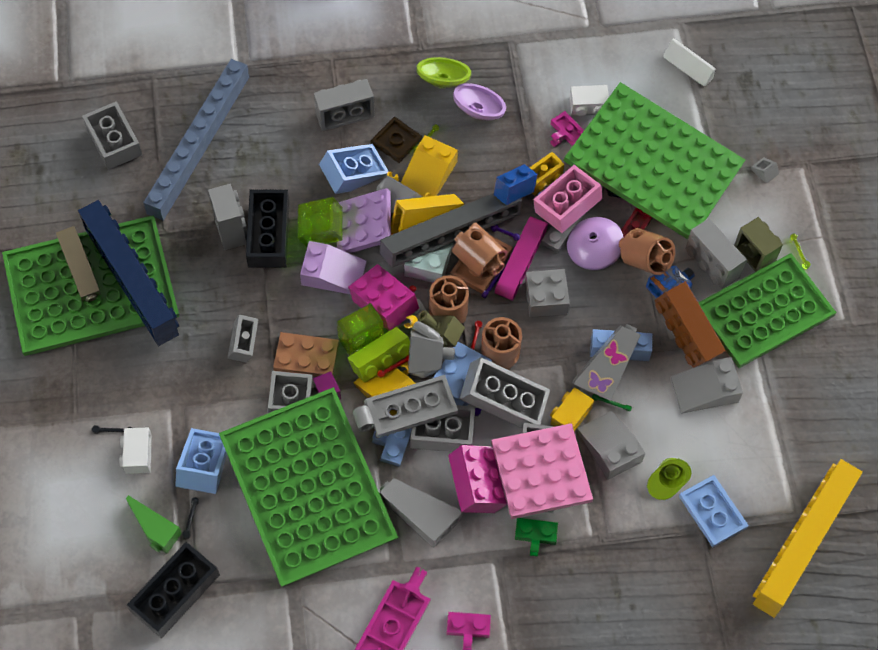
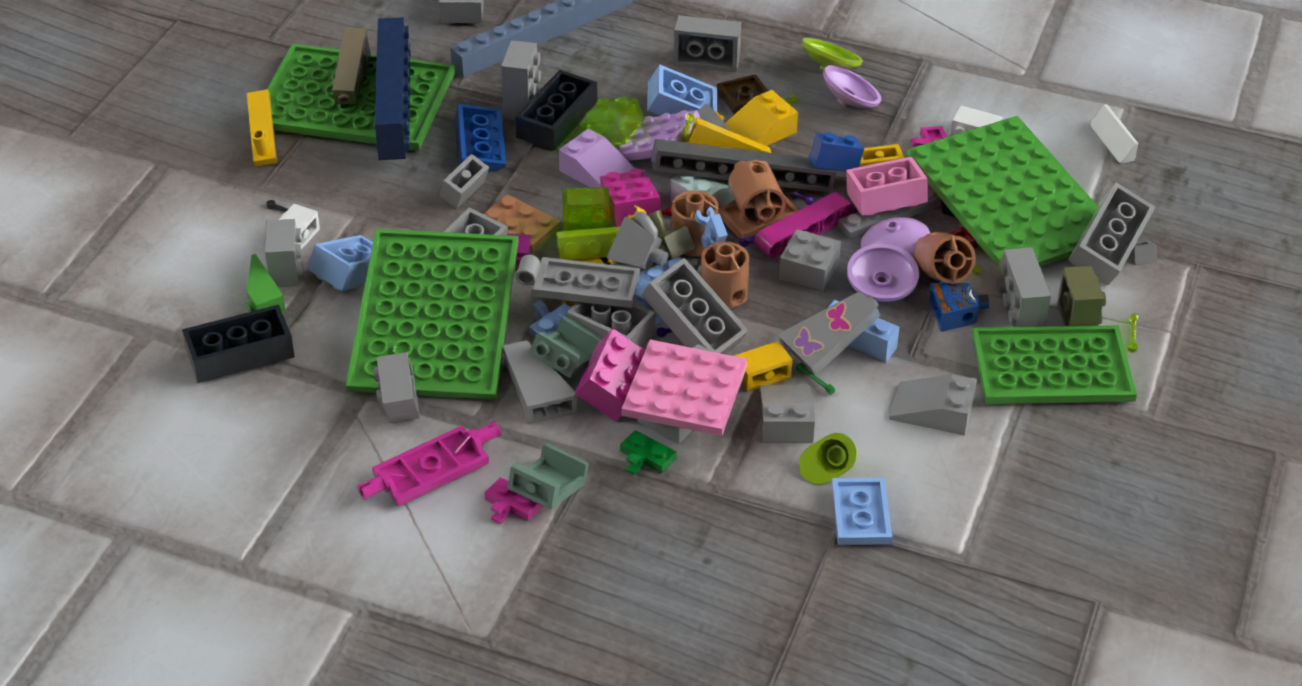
camera: 30 degrees right, 20 degrees down
(39, 357) = (261, 128): none -> yellow piece
(153, 487) = (283, 252): none -> light grey brick
(186, 533) = (289, 314): black hinge -> none
(221, 283) = (481, 134): none -> blue slope
(331, 576) = (396, 387): none -> light grey brick
(381, 373) = (581, 256): red hinge -> none
(389, 201) = (690, 119): none -> clear neon green hinge
(427, 469) = (567, 347): none -> sand green panel
(476, 313) = (714, 228): none -> light blue plate
(486, 596) = (549, 478): none -> sand green panel
(608, 272) = (883, 272): none -> lavender dish
(689, 325) = (944, 327): dark orange brick -> none
(747, 171) = (1112, 233): none -> light grey brick
(805, 537) = (951, 570): yellow brick -> none

